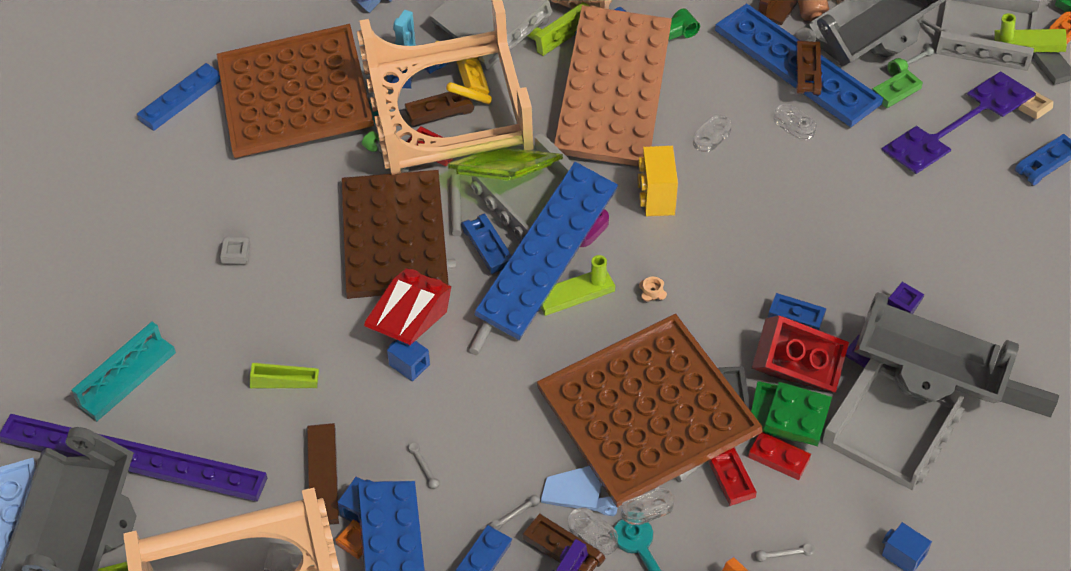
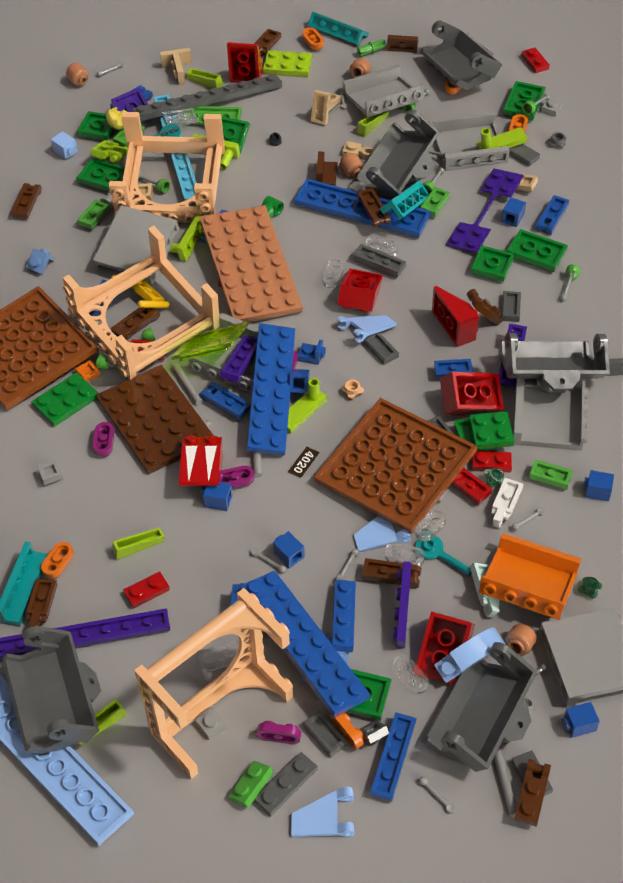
camera: 25 degrees left, 0 degrees up
(131, 404) = (41, 601): none -> reddish brown hinge
(180, 359) = (56, 561): none -> orange plate
(260, 439) = (146, 589): none -> red plate
(305, 170) = (65, 399): none -> green plate
(315, 238) = (103, 440): none -> magenta plate
(323, 467) = (201, 589): reddish brown tile -> none
(350, 146) = (88, 371): none -> orange tile
(404, 29) = (82, 275): medium azure plate -> none
(443, 128) = (147, 334): none -> bright green hinge
(444, 342) = (235, 476): none -> magenta plate
(453, 461) = (288, 549): none -> blue brick
(526, 199) = (239, 359): none -> dark purple plate
(540, 358) = (303, 462): none -> dark brown sticker
(585, 249) = (299, 380): none -> blue brick
(628, 224) = (312, 353): none -> blue bracket
(658, 181) = (319, 316): yellow brick -> none
(716, 214) = (366, 325): none -> light blue flag
(720, 250) = (381, 348): none -> dark grey tile
(733, 166) = (359, 290): none -> red slope
(766, 516) = (506, 501): none -> white hinge
(775, 472) = (494, 472): none -> clear green plate
(781, 137) = (379, 260): none -> dark grey plate
(836, 247) = (455, 316): none -> red slope
(848, 505) = (550, 474): none -> bright green plate
(858, 68) = (407, 196): none -> teal fence
(878, 247) = (484, 307): none -> reddish brown plate
(923, 260) = (511, 306): none -> dark grey tile
(928, 194) = (492, 263): none -> green plate
(995, 137) = (513, 212): none -> blue brick
(1000, 199) = (537, 250): none -> green plate
(1031, 246) = (571, 276): none -> hinge

